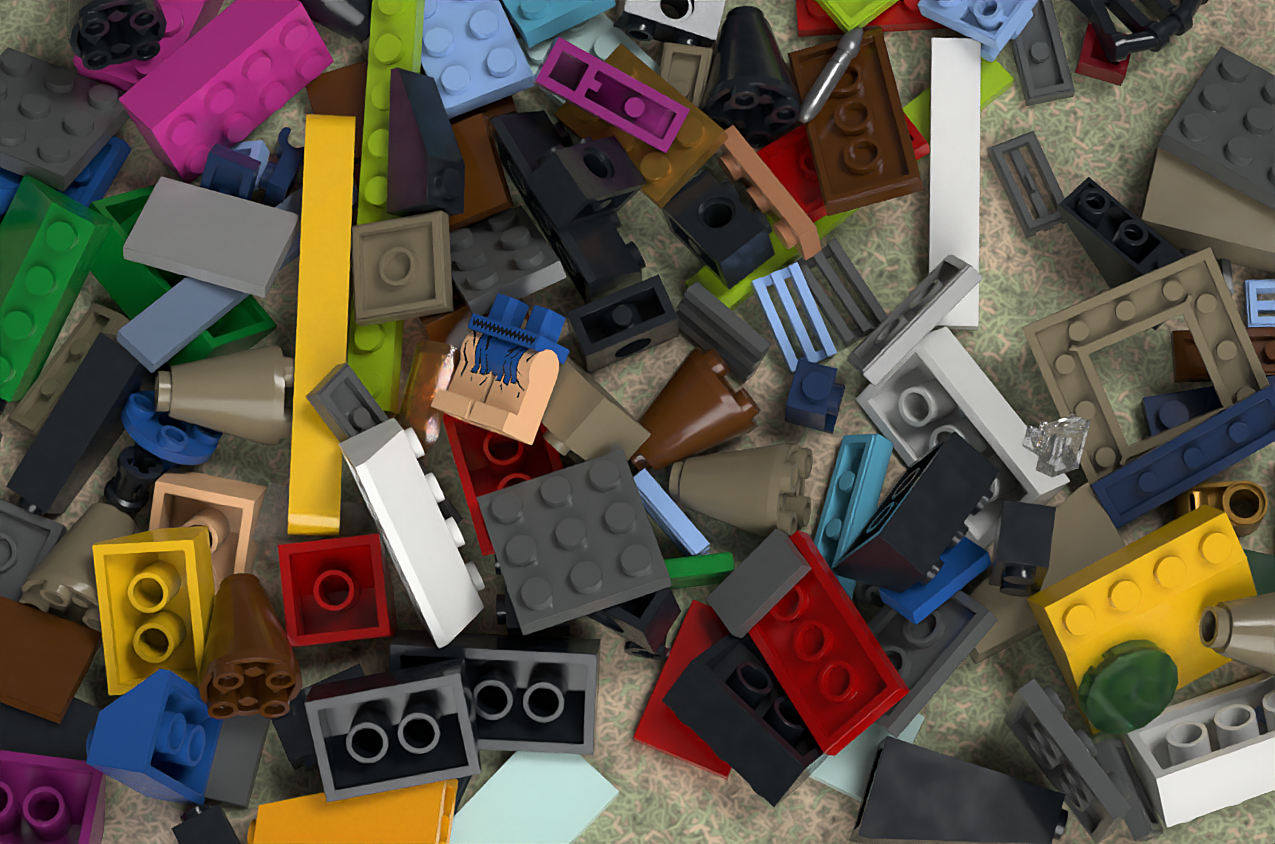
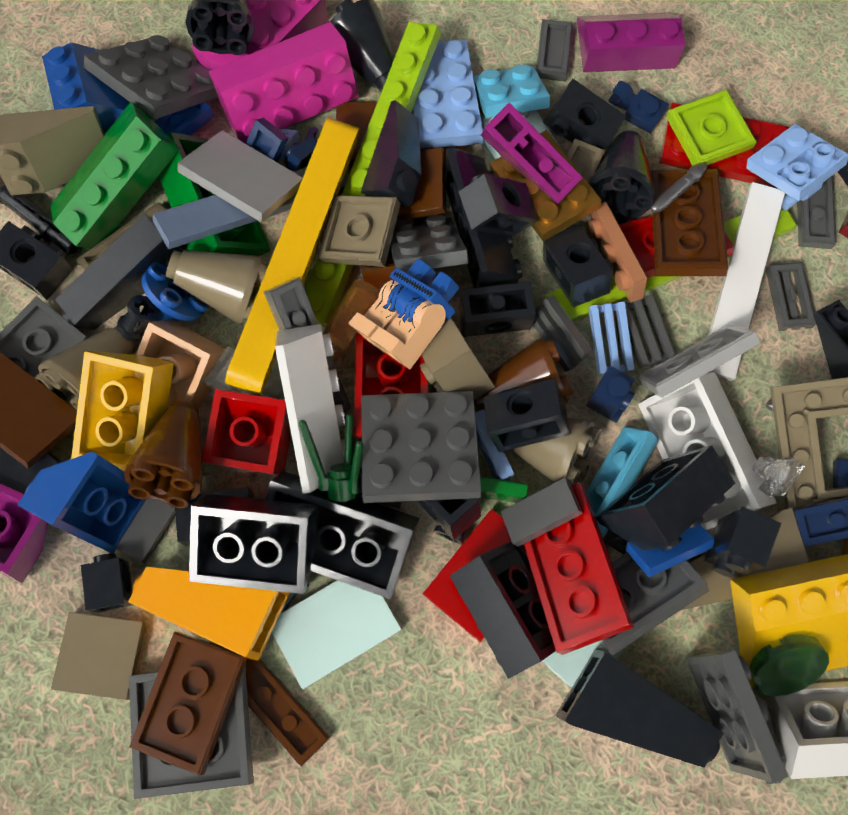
camera: 10 degrees right, 0 degrees up
(484, 615) = (343, 478): none -> dark green plant
(703, 461) = (526, 415): none -> black brick

